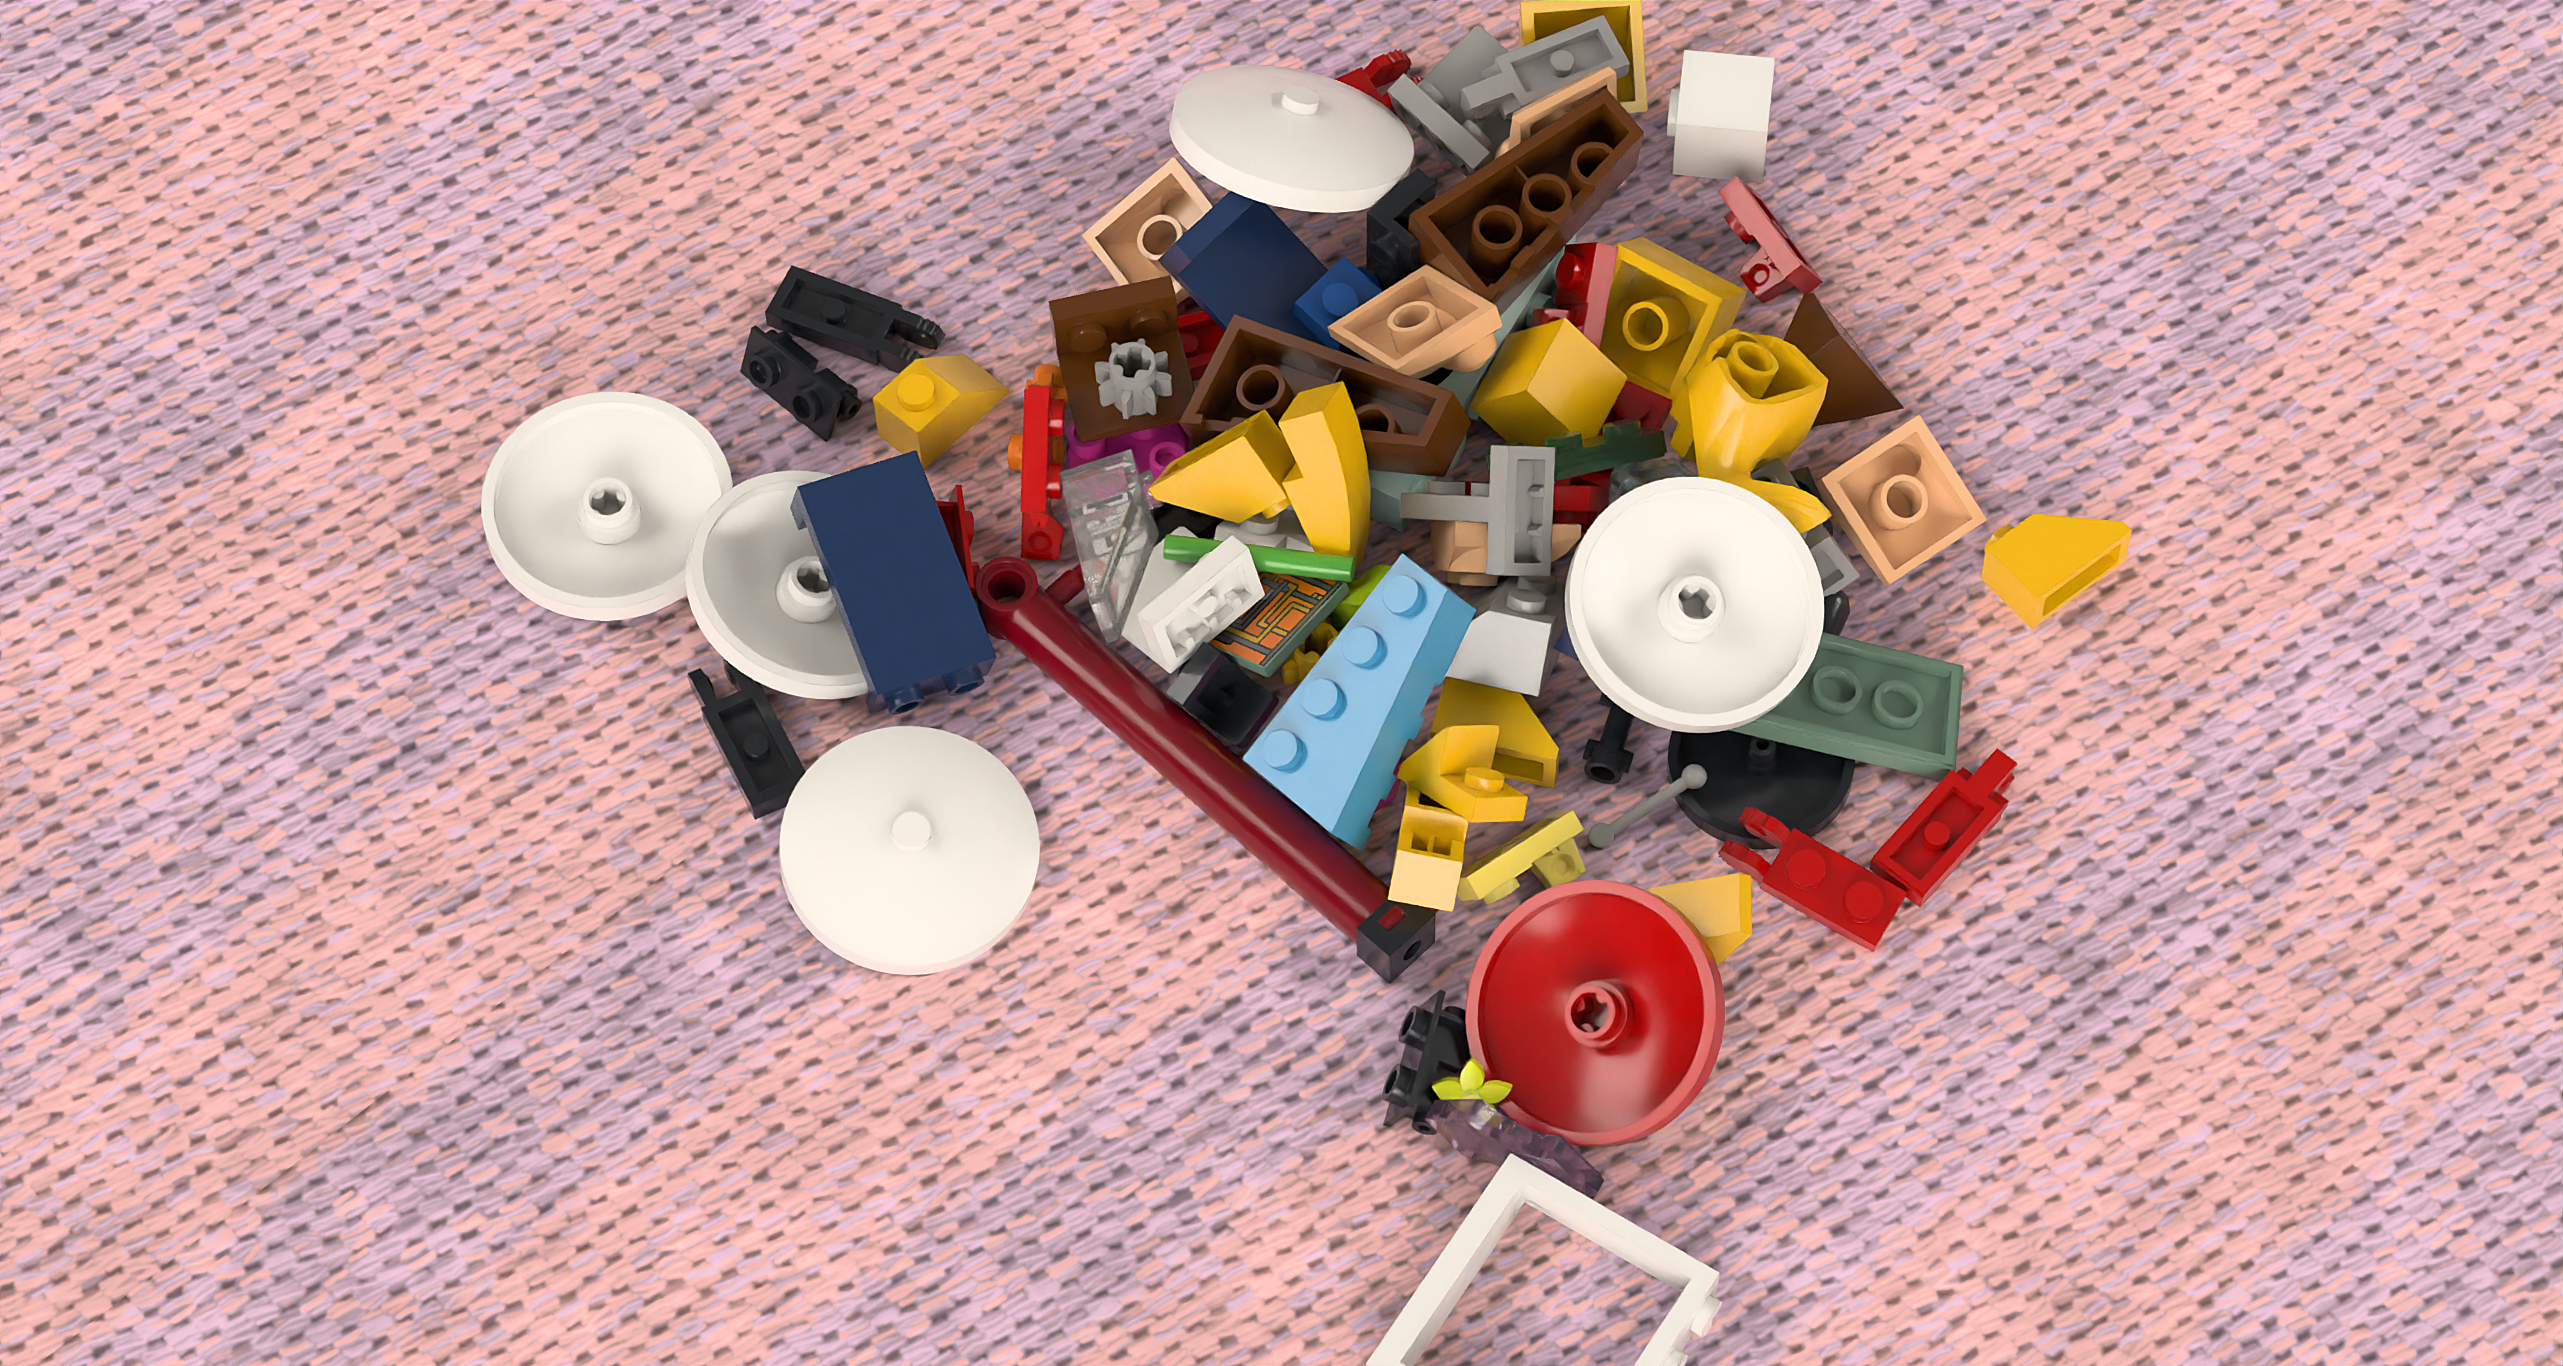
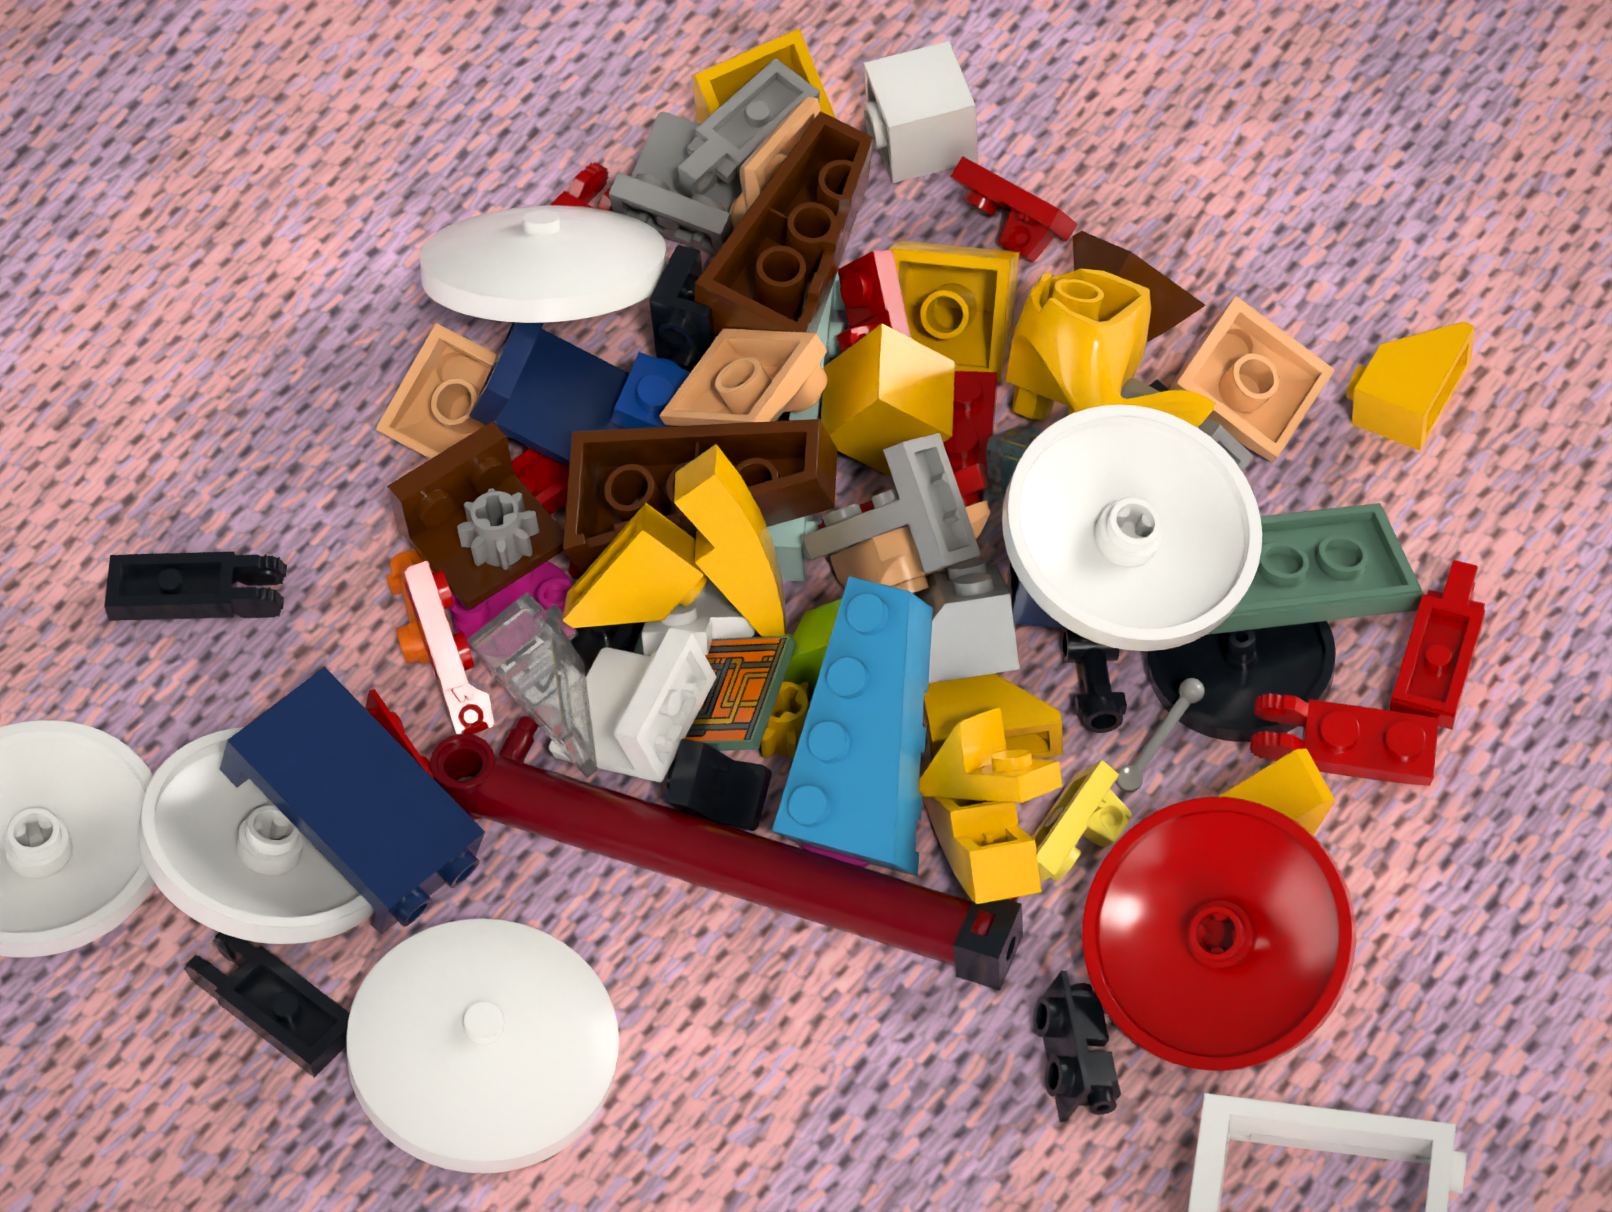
camera: 20 degrees left, 5 degrees down
(787, 375) = (162, 662): black hinge -> none
(934, 404) = (307, 629): yellow slope -> none
(1267, 558) = (710, 640): bright green bar -> none
(1471, 1085) = (1135, 1060): neon yellow plant -> none
(1490, 1137) = (1173, 1087): tile -> none
(1620, 445) = (981, 420): clear green hinge -> none

